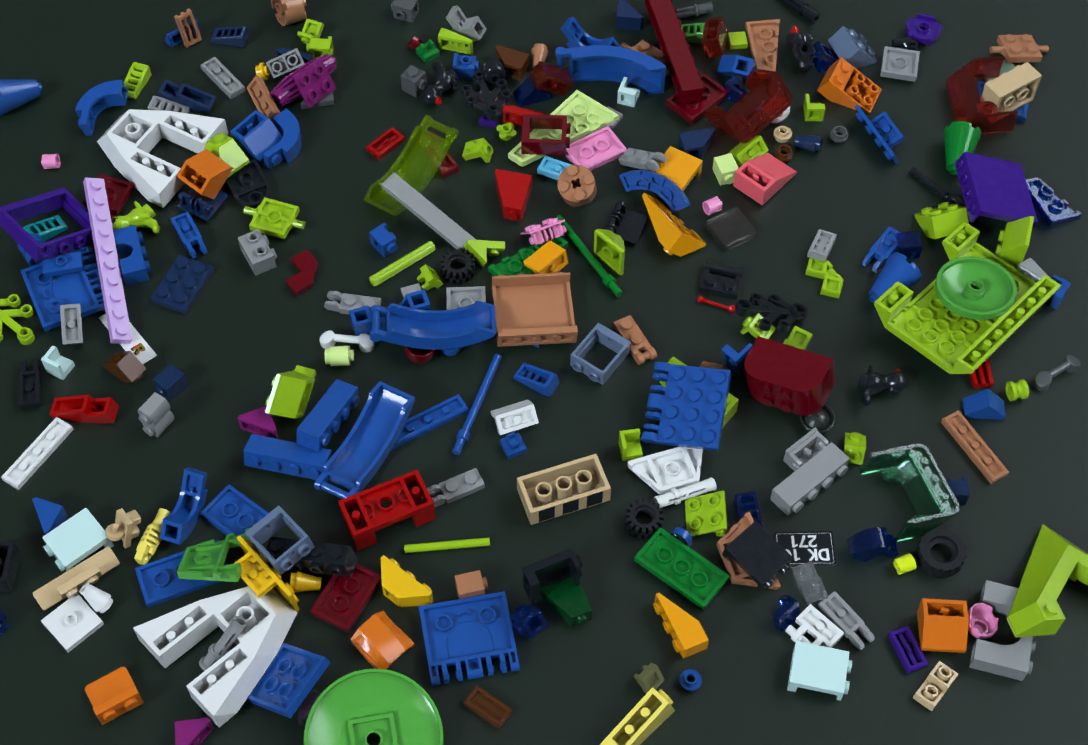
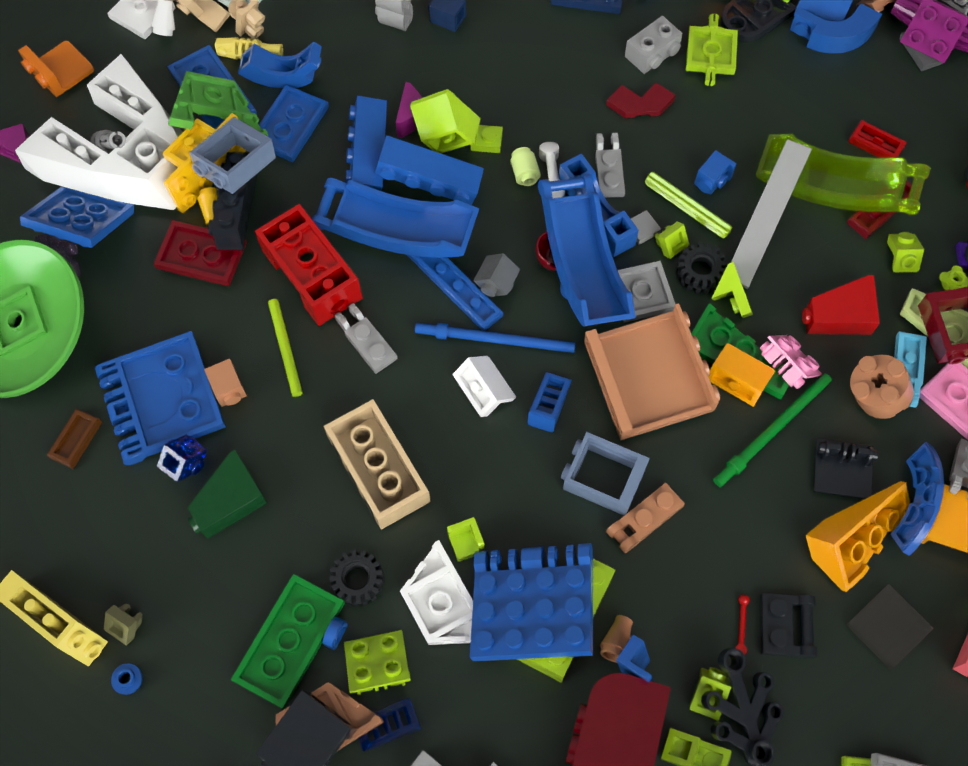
camera: 80 degrees right, 10 degrees up
(381, 641) = (145, 304): orange slope -> none
(402, 586) = (219, 305): yellow slope -> none
(430, 389) = (496, 275): none -> dark grey brick
(513, 445) = (441, 393): blue tile -> none
(549, 571) = (210, 445): black panel -> none
(610, 249) = (790, 455): lime slope -> none
(675, 495) = (409, 632): white pin -> none
(685, 630) = (194, 659): light orange slope -> none
(712, 205) = (922, 590): bright pink hose -> none

